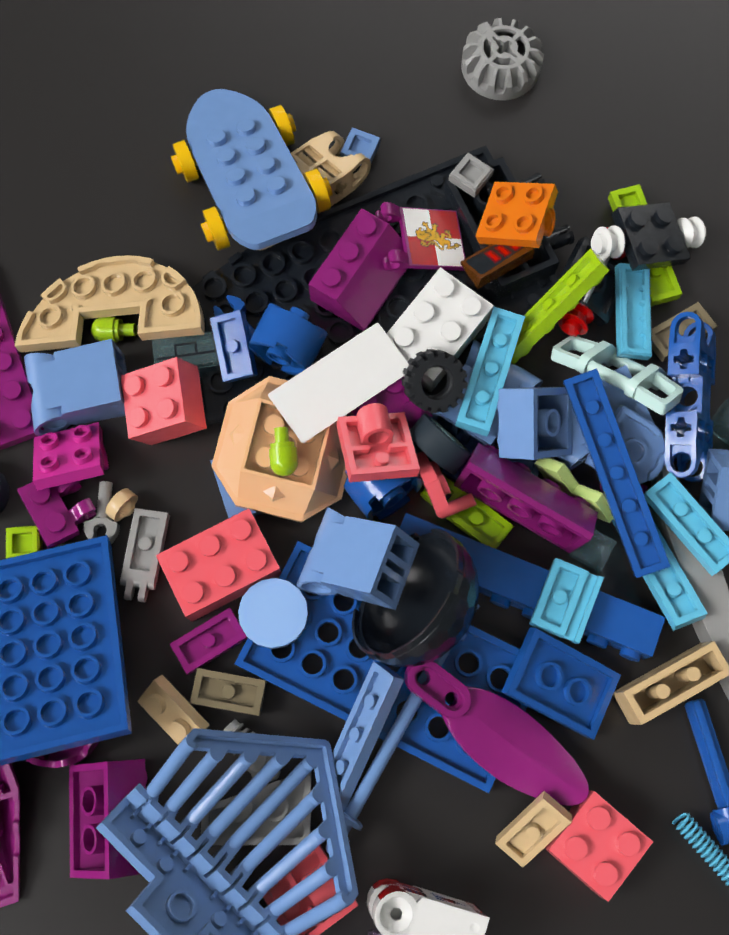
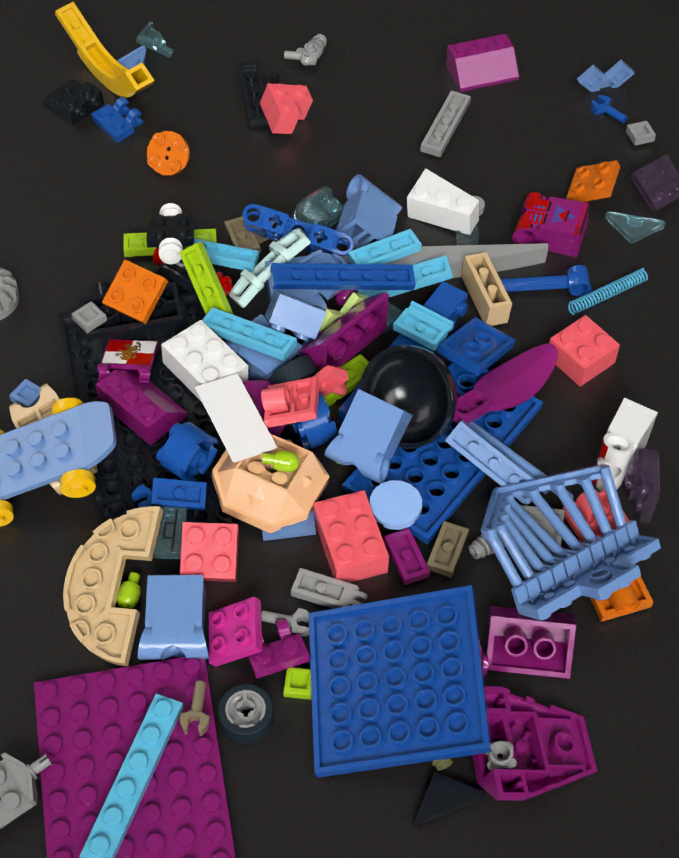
camera: 80 degrees left, 20 degrees down
(121, 504) = (285, 601): tan tile -> none
(171, 709) = (464, 576): tan plate -> none
(452, 389) = (244, 367): black tyre -> none
(494, 262) = (165, 316): slope -> none
(533, 829) = (569, 380): tan plate -> none

